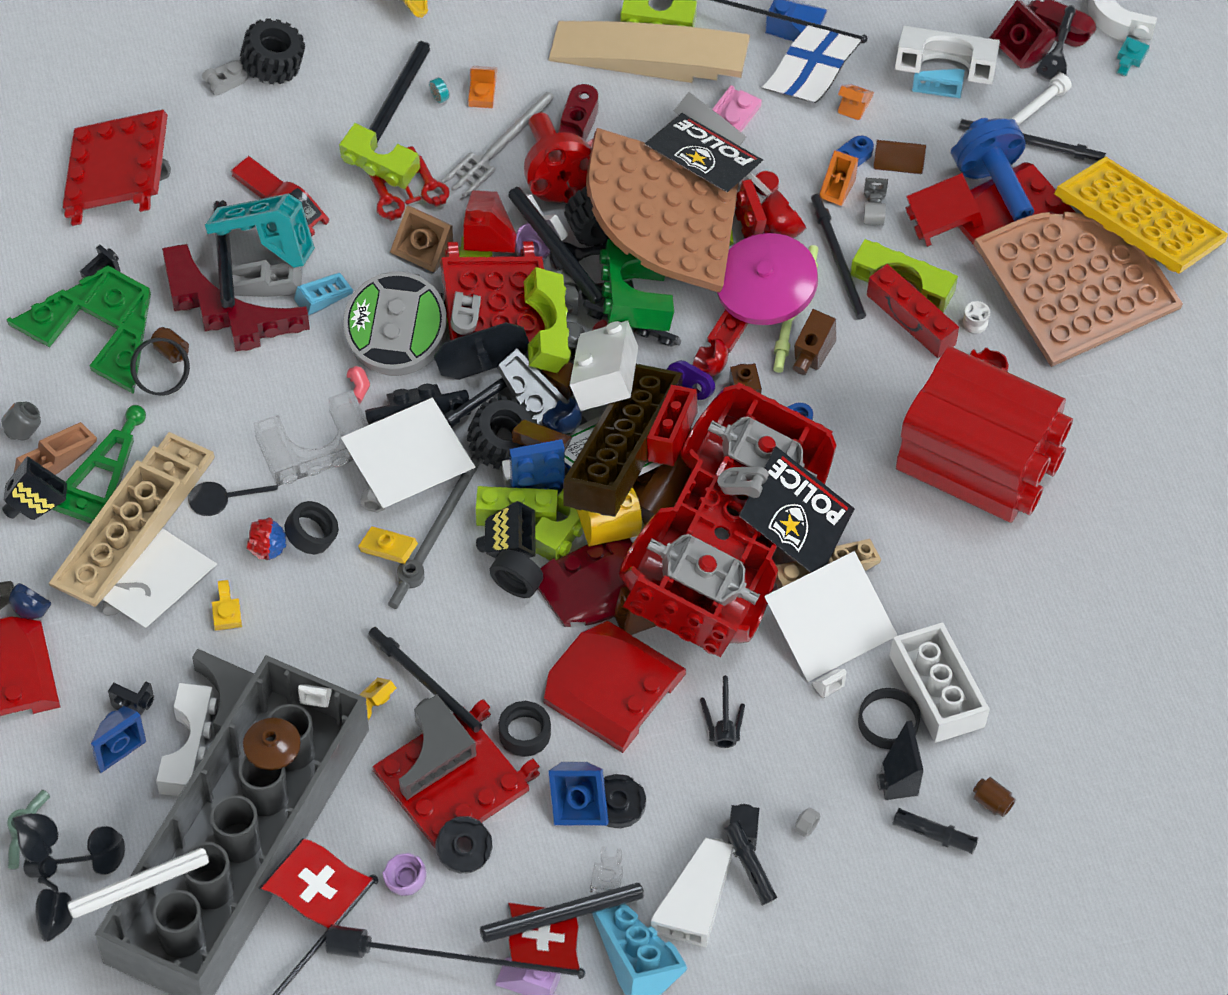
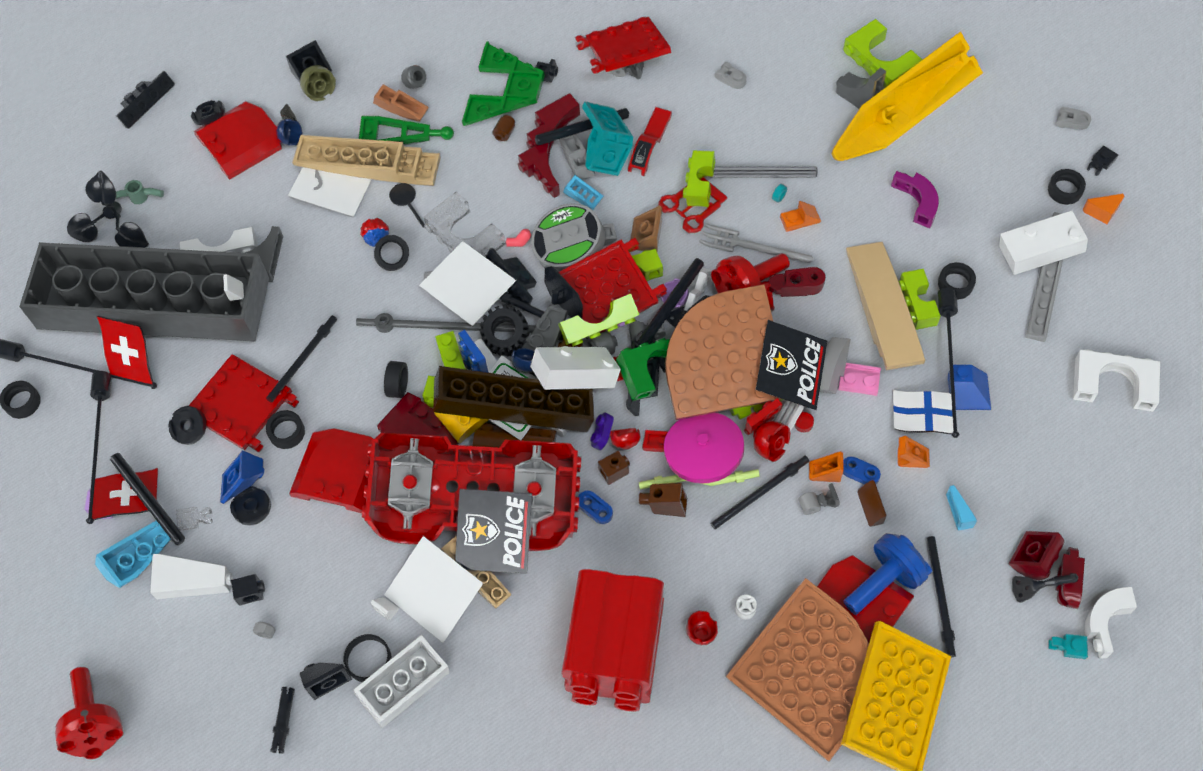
camera: 75 degrees right, 5 degrees up
(33, 491) = (361, 101): black torso -> none
(117, 737) = (206, 210): blue slope -> none
(138, 882) = (75, 249): white axle -> none
(139, 701) = (238, 210): black bracket -> none
(186, 366) = (464, 127): black tyre -> none
(227, 610) = (321, 234): yellow plate -> none
(271, 754) = (196, 286): reddish brown dish -> none
(276, 37) = (763, 77): black tyre -> none
(377, 693) = (282, 335): yellow plate -> none
(388, 545) = (397, 300): yellow plate -> none
(404, 874) = (155, 400): lavender hair -> none
(444, 746) = (247, 383): dark grey arch -> none
(465, 319) = (573, 269): light grey plate -> none
(488, 224) = (672, 257): red wedge -> none
(509, 530) = (422, 364): black torso -> none
(529, 433) = (498, 351): reddish brown slope -> none
(672, 425) = (538, 425): red brick -> none
(724, 732) = (320, 552): black plant -> none
(735, 481) = (487, 475): light grey plate -> none
(750, 863) = (220, 594): black pin -> none
(912, 310) = (728, 558): red brick -> none
(924, 44) = (987, 480): white arch -> none
(929, 280) = (759, 566): lime arch -> none
(942, 208) = (832, 549): red panel -> none
(994, 796) = (321, 752): reddish brown brick -> none
(1058, 86) = (1006, 597): white piece -> none

